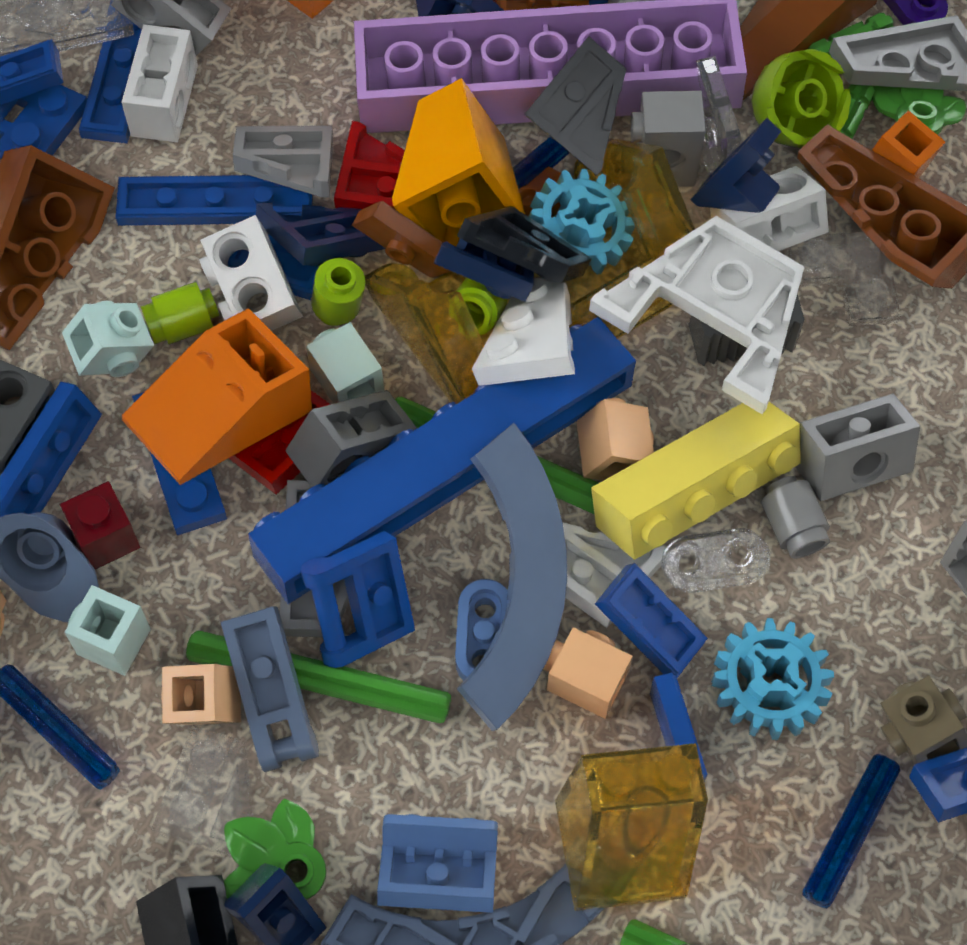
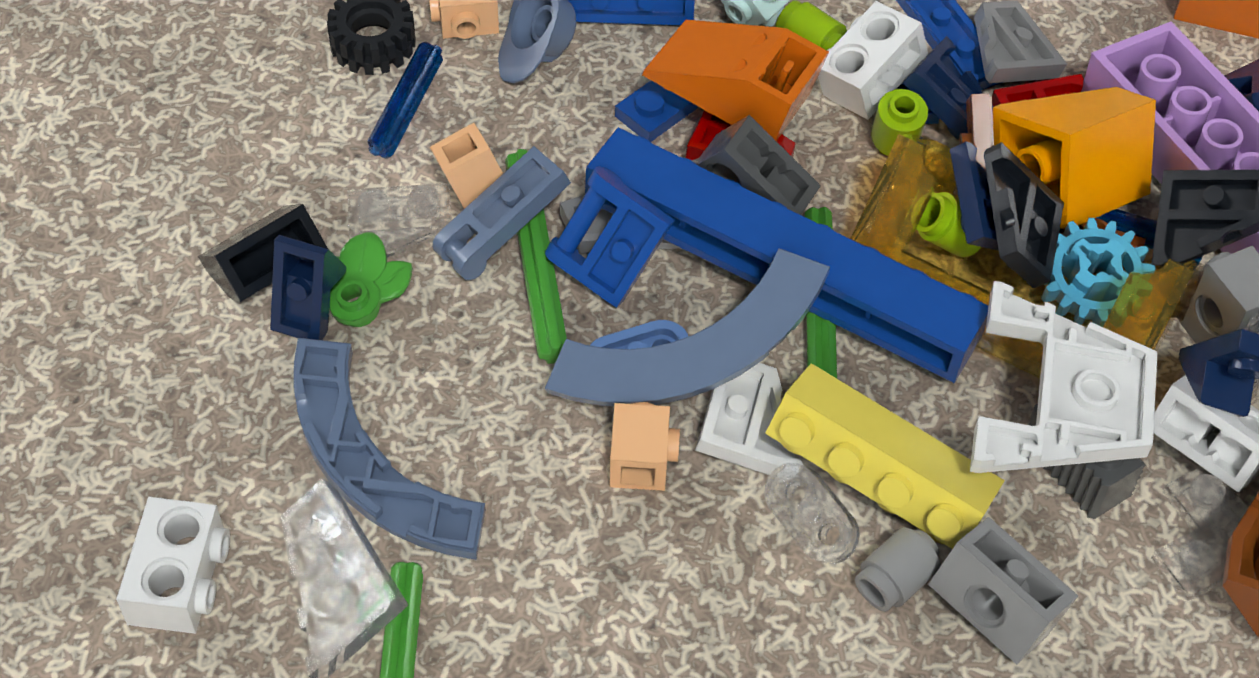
camera: 65 degrees right, 10 degrees down
(100, 525) = (586, 53): dark red brick -> none
(107, 630) = (495, 89): light aqua brick -> none
(344, 364) = (835, 158): light aqua brick -> none
(438, 863) = (404, 395): medium blue bracket -> none
(529, 338) = (936, 260): white wing -> none
(613, 437) = (891, 379): light nougat brick -> none
(632, 825) = (495, 511): clear yellow slope -> none
(651, 620) = (716, 476): blue plate -> none
(673, 713) = (615, 539): blue tile -> none
(787, 693) = (734, 618): medium azure gear -> none

